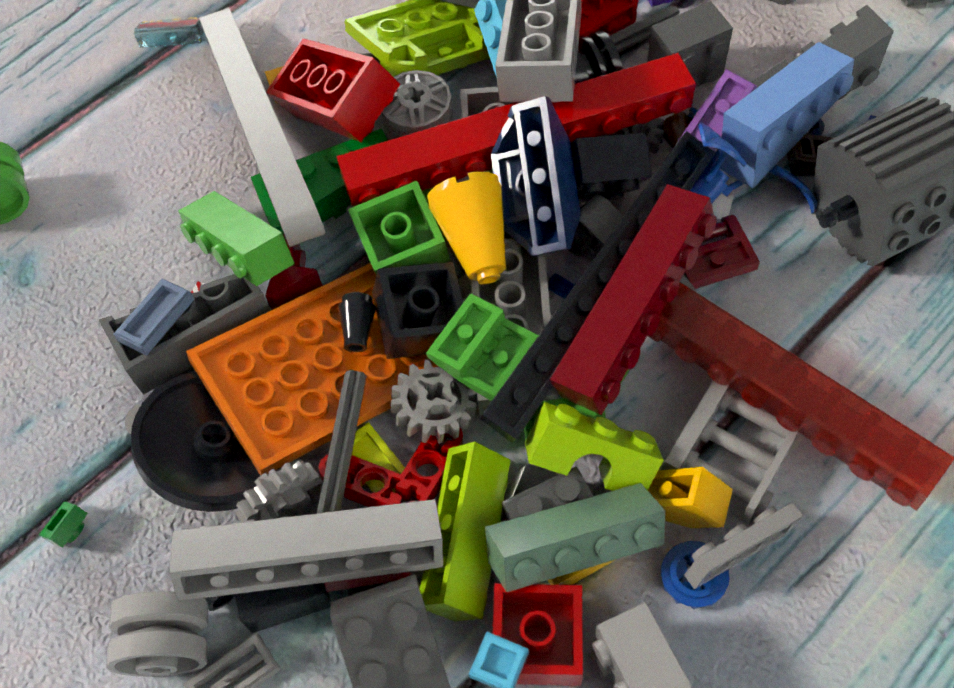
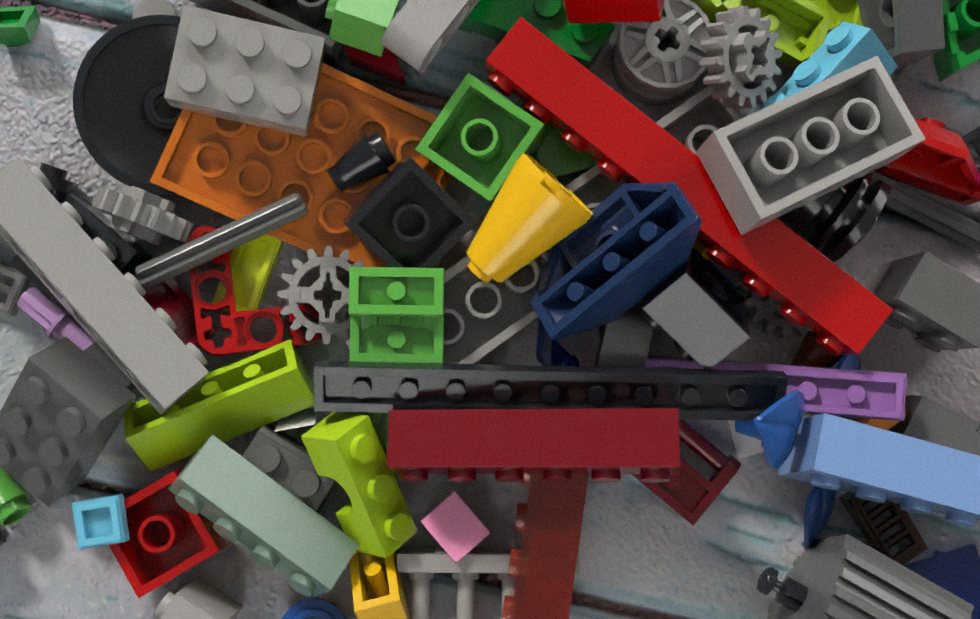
camera: 50 degrees right, 25 degrees up
(236, 349) = (245, 71): none -> light grey brick
(302, 631) = (53, 318): none -> lavender axle
(456, 62) = (740, 57): none -> light grey gear
(666, 410) = (455, 527): none -> bright pink panel

